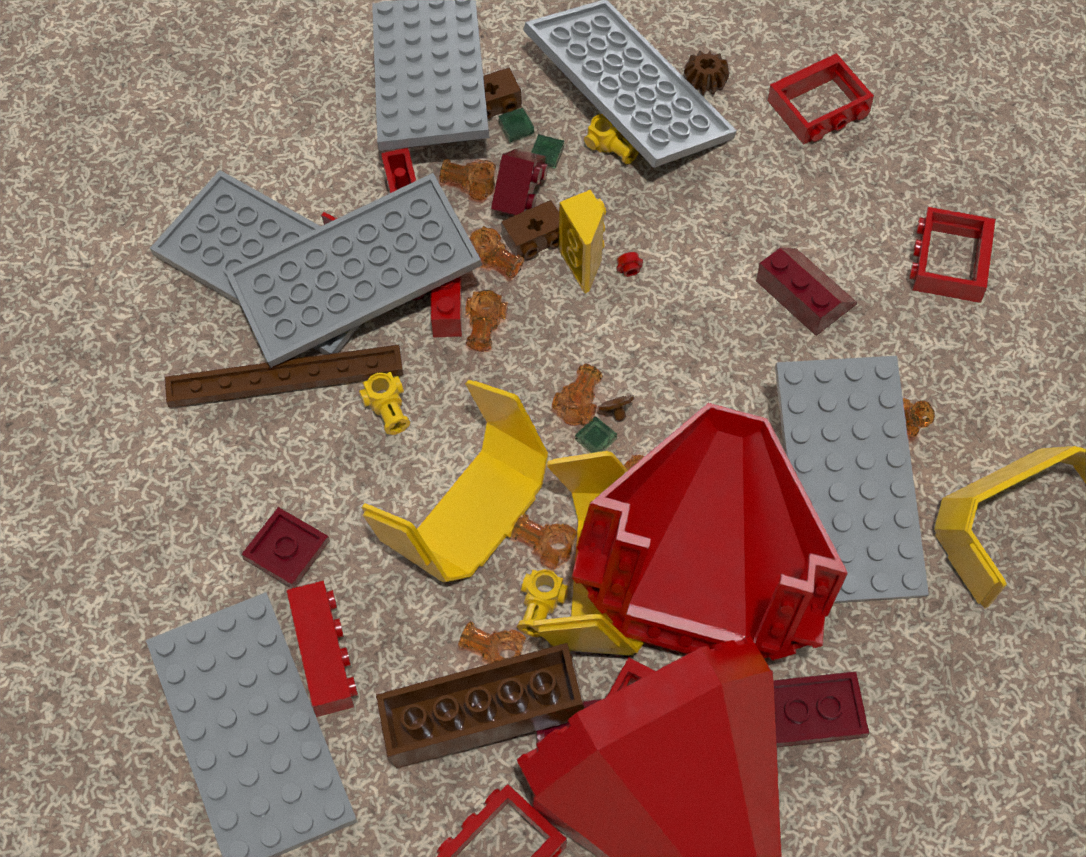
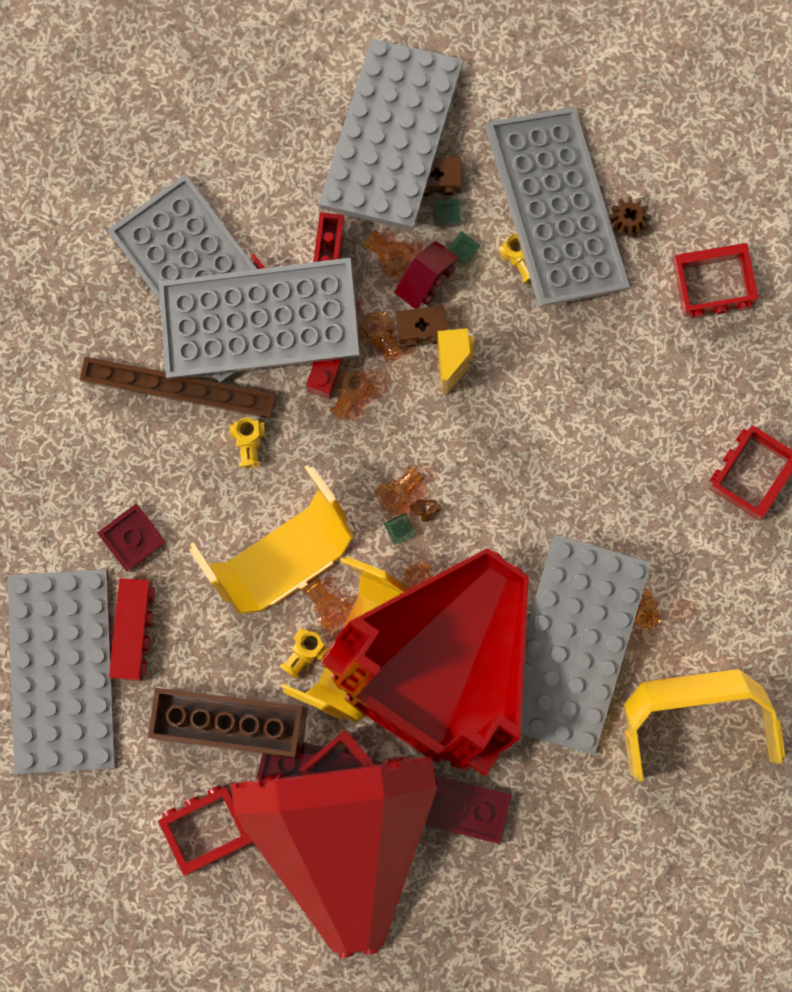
camera: 25 degrees right, 20 degrees up
(491, 644) = (255, 675): clear orange connector -> none
(629, 264) = (487, 384): red plate -> none
(803, 289) = (621, 458): dark red slope -> none

